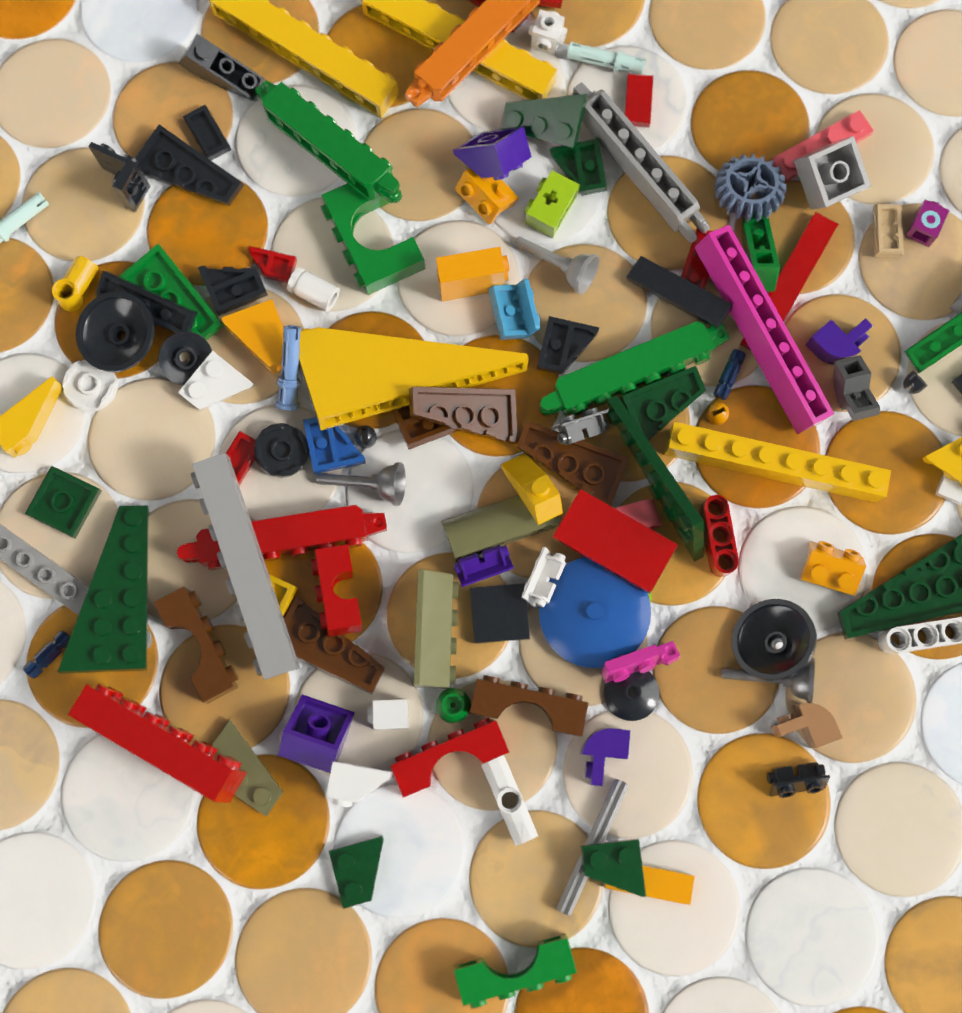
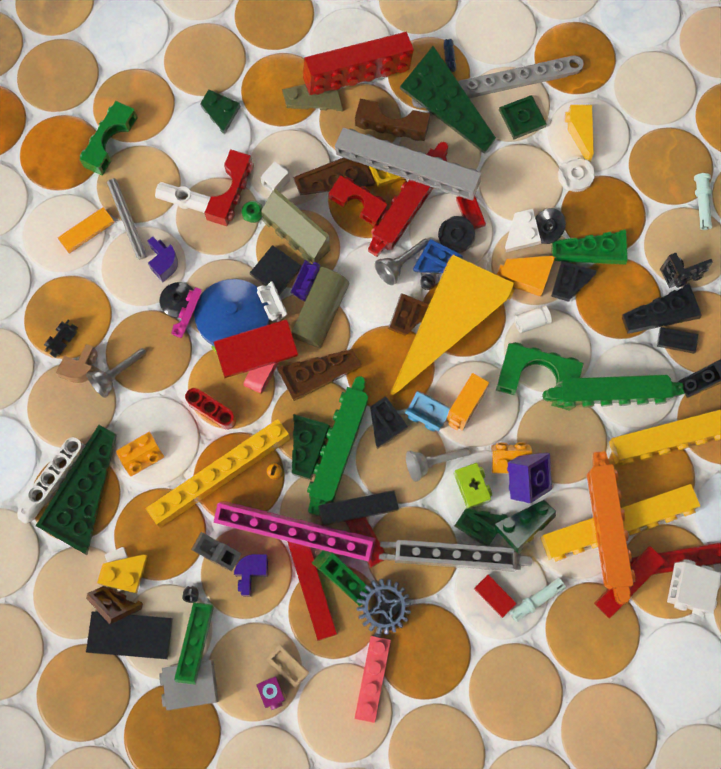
camera: 135 degrees right, 5 degrees down
(75, 281) = (640, 207): yellow piece -> none
(104, 323) = (595, 194): black dish -> none
(163, 310) = (597, 230): black tile -> none
(273, 264) = (565, 313): red tile -> none
(289, 379) = (490, 263): medium blue pin -> none
(315, 733) = (298, 139): dark purple slope -> none
(353, 782) = (258, 134): white slope -> none
(472, 410) = (390, 341): wing -> none
(533, 488) = (322, 332): yellow slope -> none
(547, 32) = (576, 581): white brick -> none
(565, 713) = (200, 256): reddish brown arch -> none
(571, 428) = (331, 397): hinge -> none
(615, 864) = (107, 217): dark green wing -> none
(662, 483) = (267, 400): dark green wing -> none
(729, 374) = (289, 496): dark blue axle -> none
(763, 628) = (138, 376): black dish -> none
(832, 173) = (348, 659): light grey brick -> none

